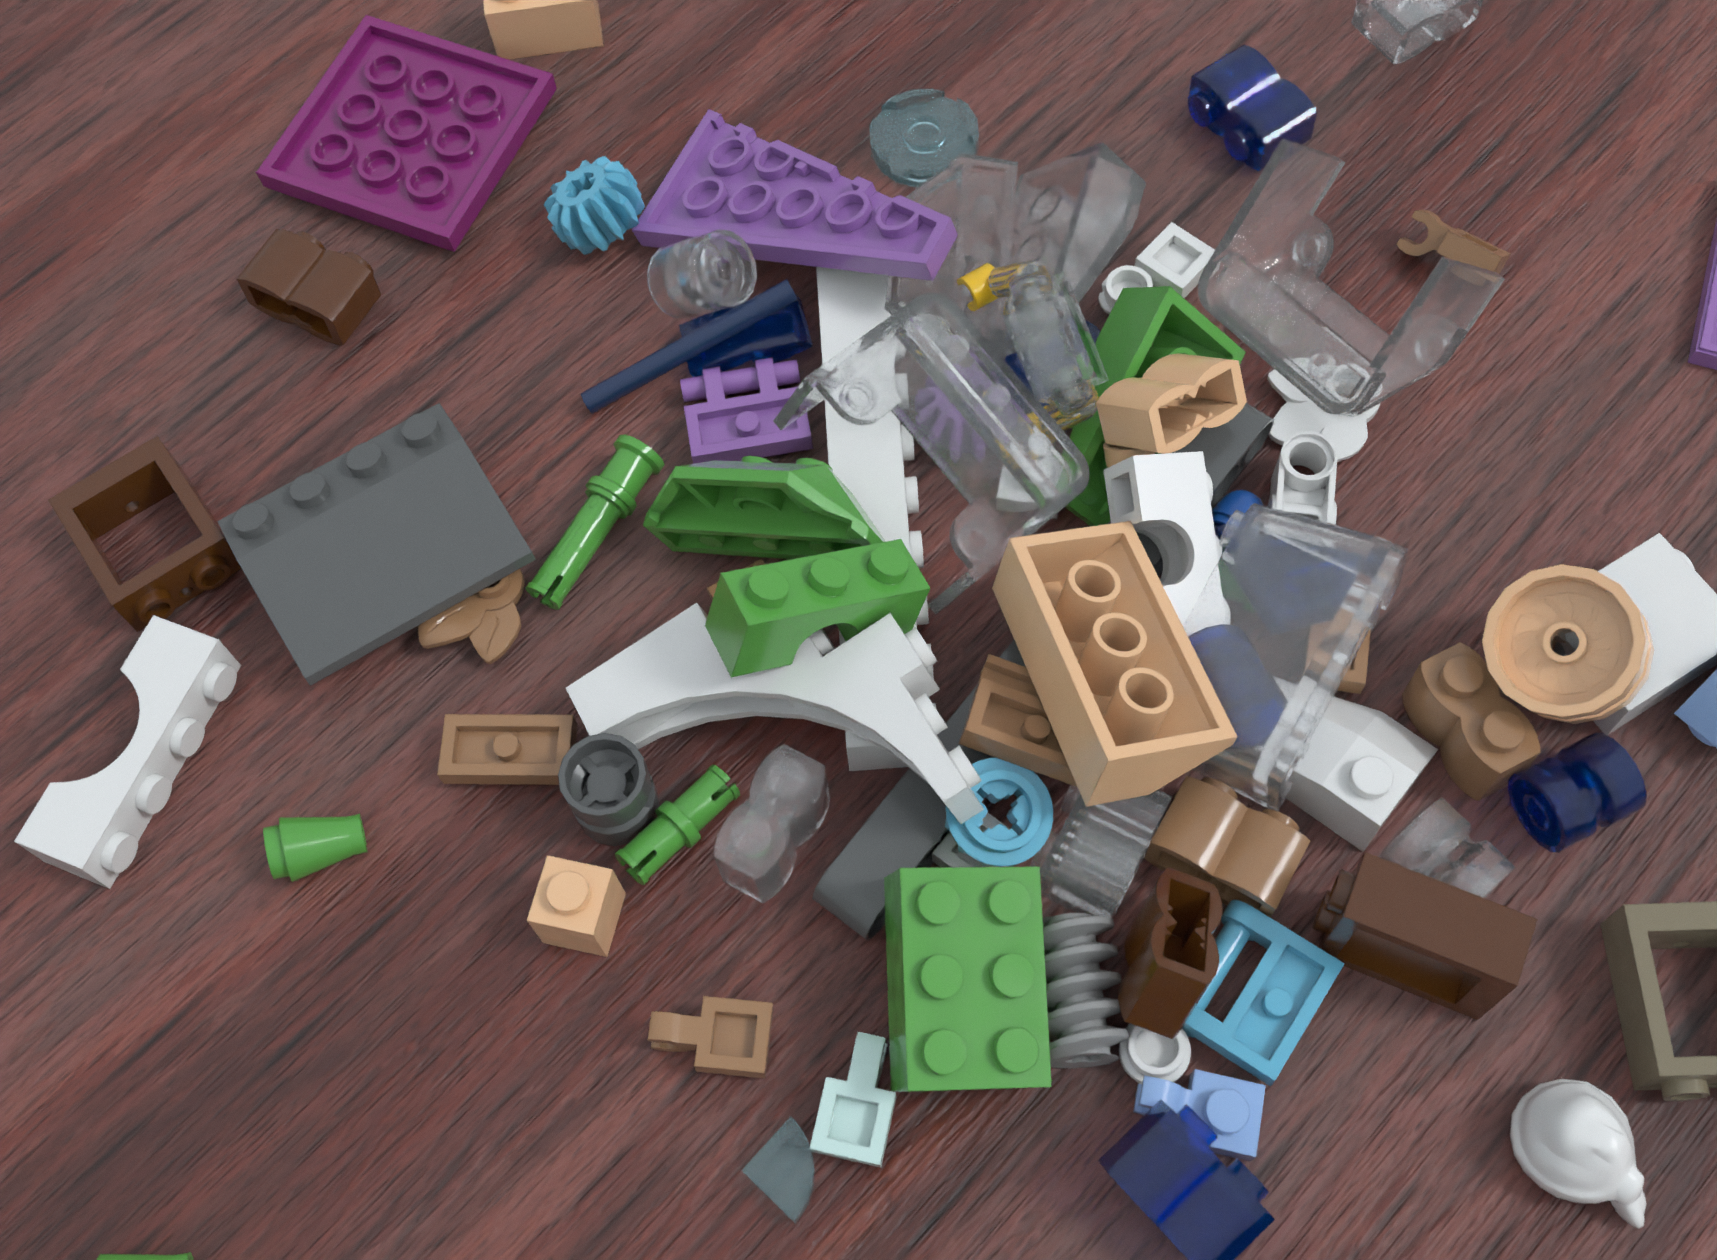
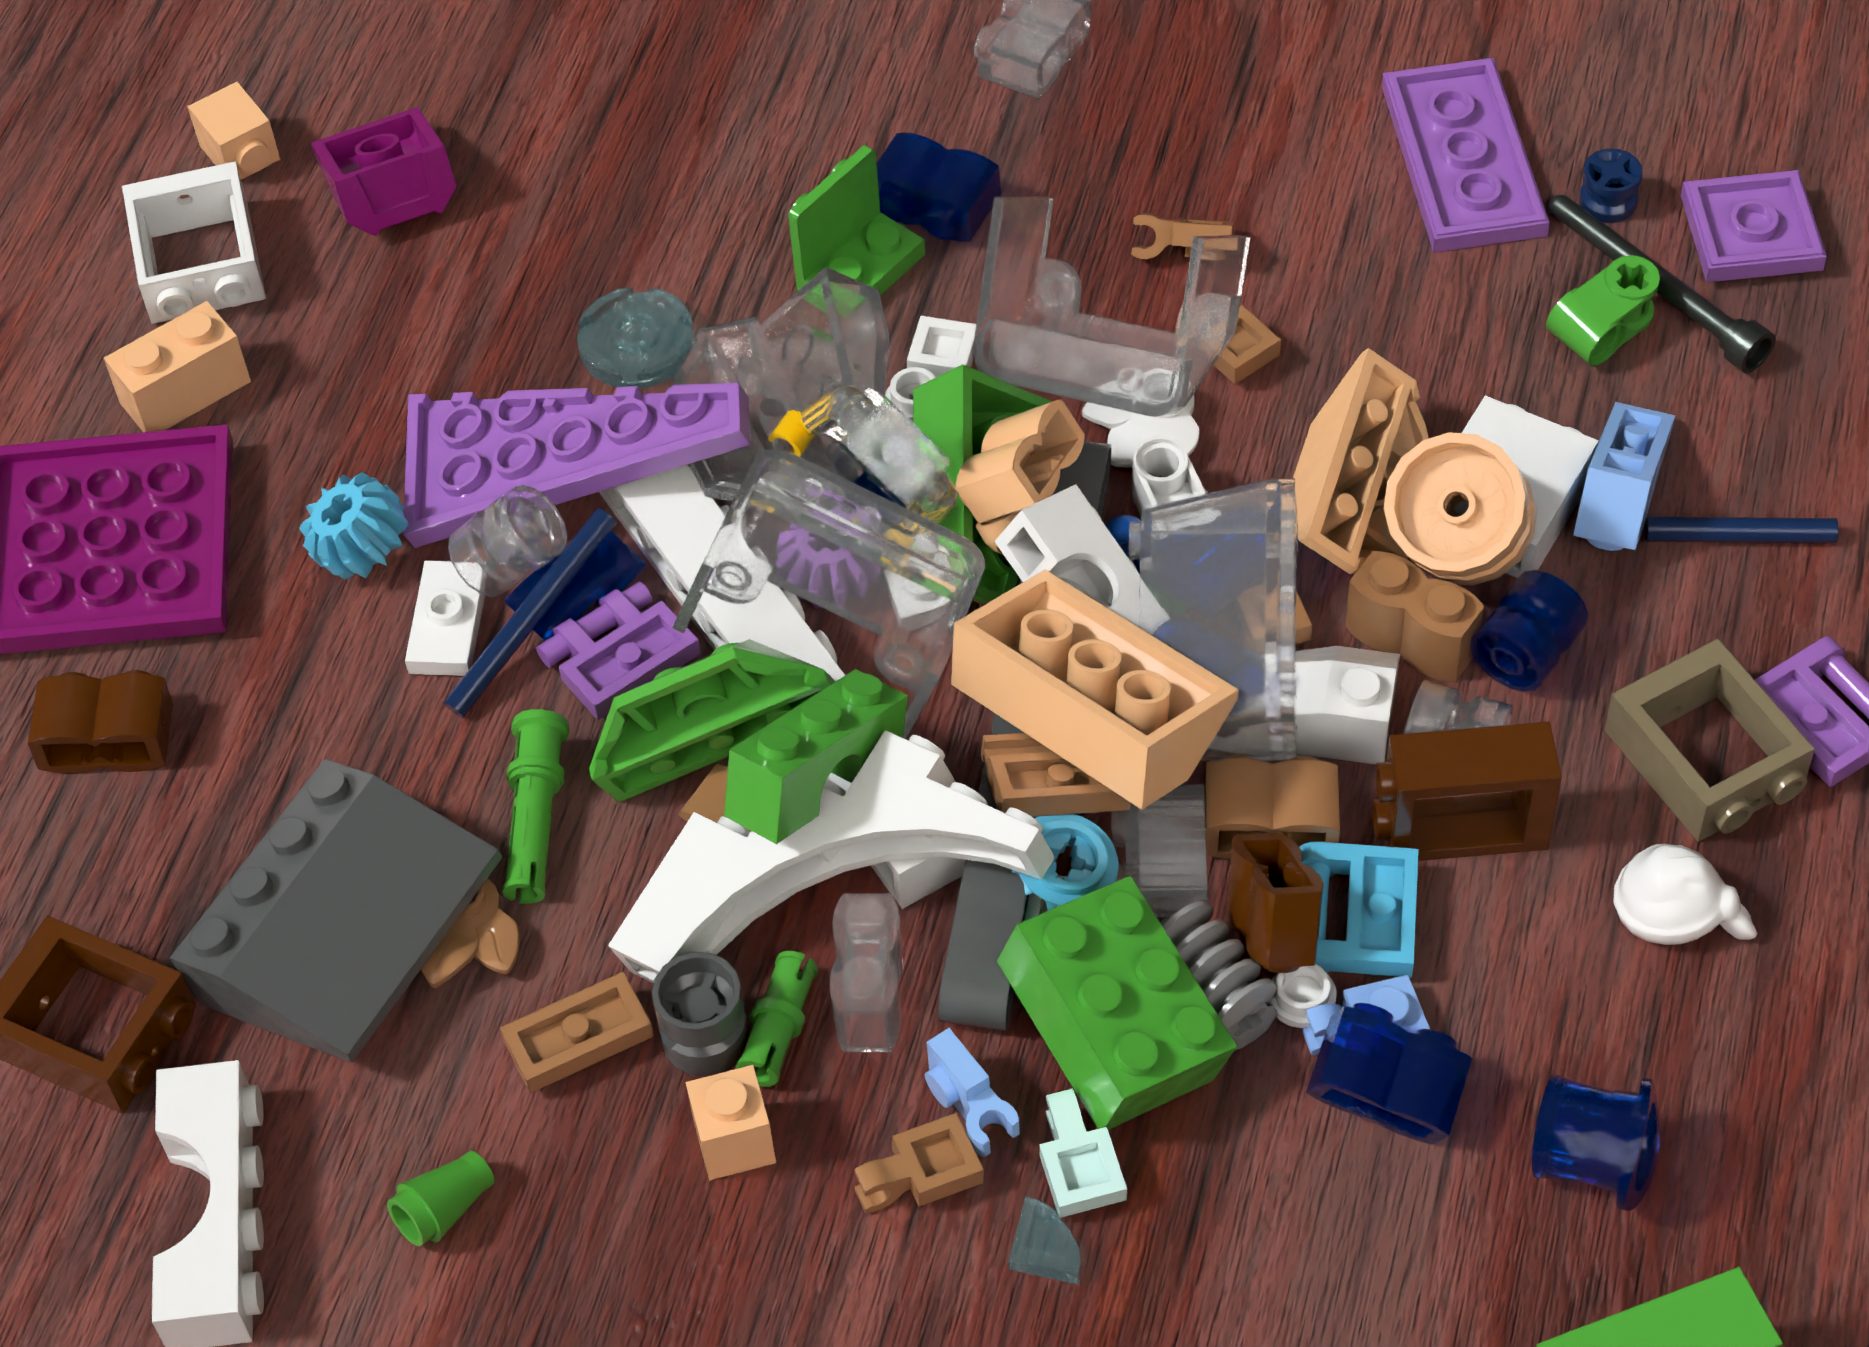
camera: 30 degrees left, 10 degrees down
(621, 324) = (443, 623): none -> white plate
(792, 970) = (960, 1081): none -> light blue plate
(1149, 117) = (844, 230): none -> bright green bracket
(1457, 382) = (1249, 348): none -> medium nougat plate
(1489, 538) = (1350, 459): none -> light nougat wedge

